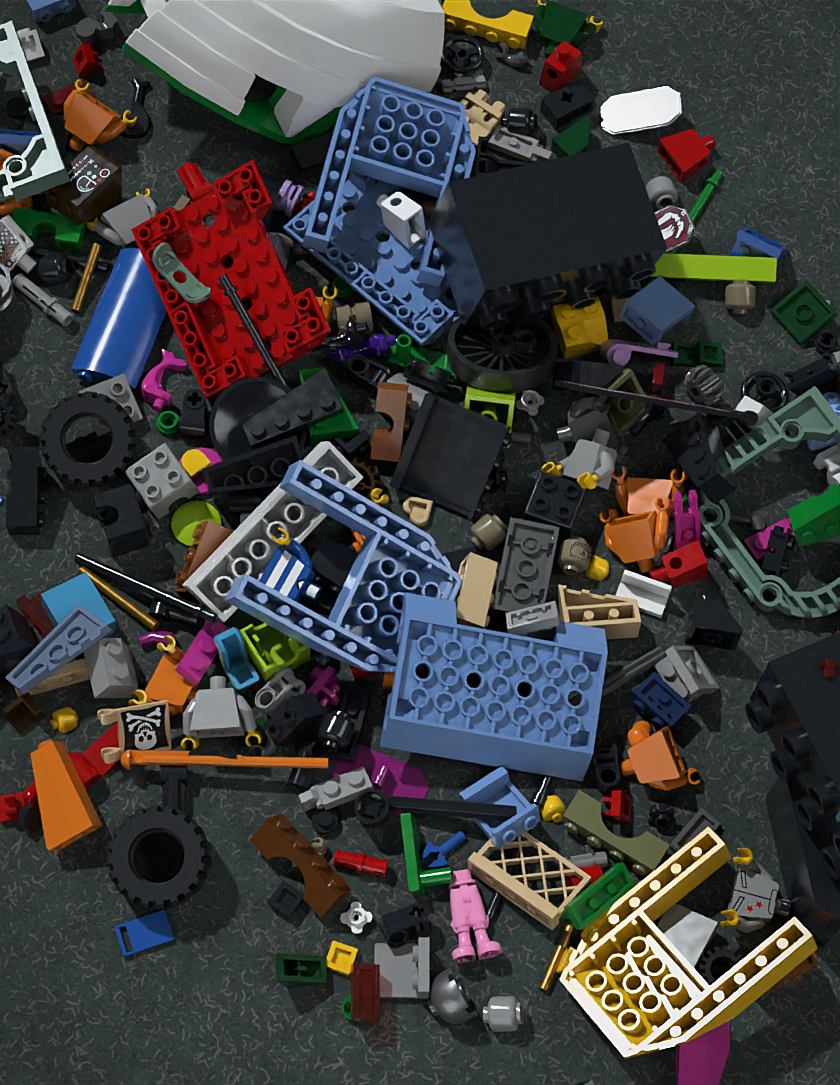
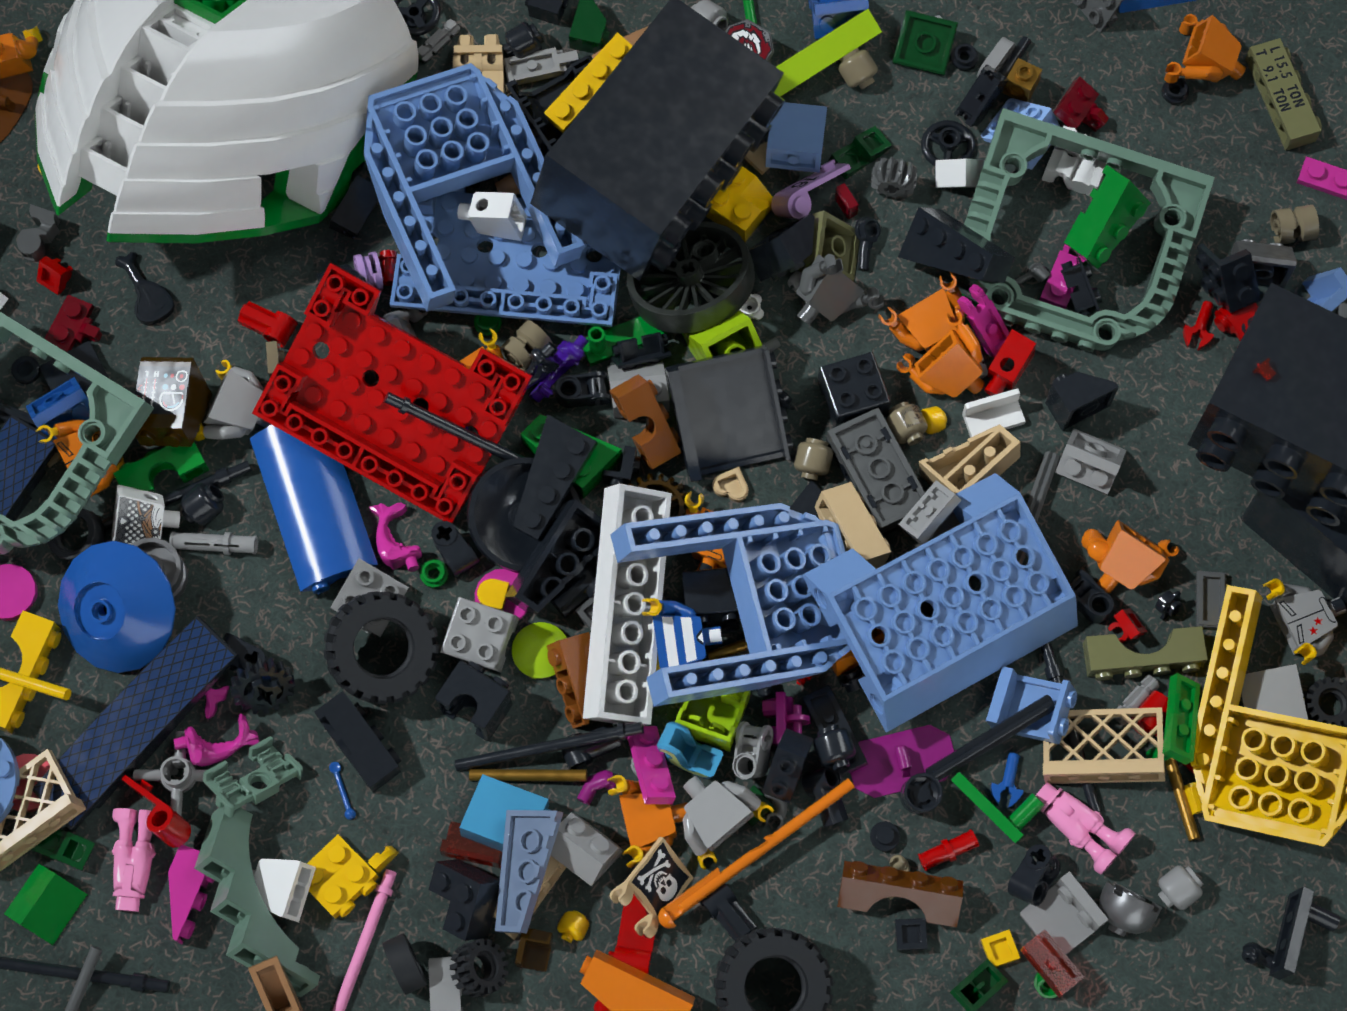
camera: 30 degrees left, 5 degrees up
(86, 277) = (238, 490): pearl gold bar -> none
(91, 120) = (113, 330): orange torso -> none
(168, 264) = (359, 429): sand green piece -> none
(336, 790) = (875, 800): light grey hinge -> none
(356, 925) = (978, 908): white plate -> none
(553, 809) = (1073, 669): yellow piece -> none
(589, 463) = (853, 328): light grey torso -> none
(659, 702) = (1089, 503): dark blue bracket -> none
(720, 411) = (924, 197): black flag -> none

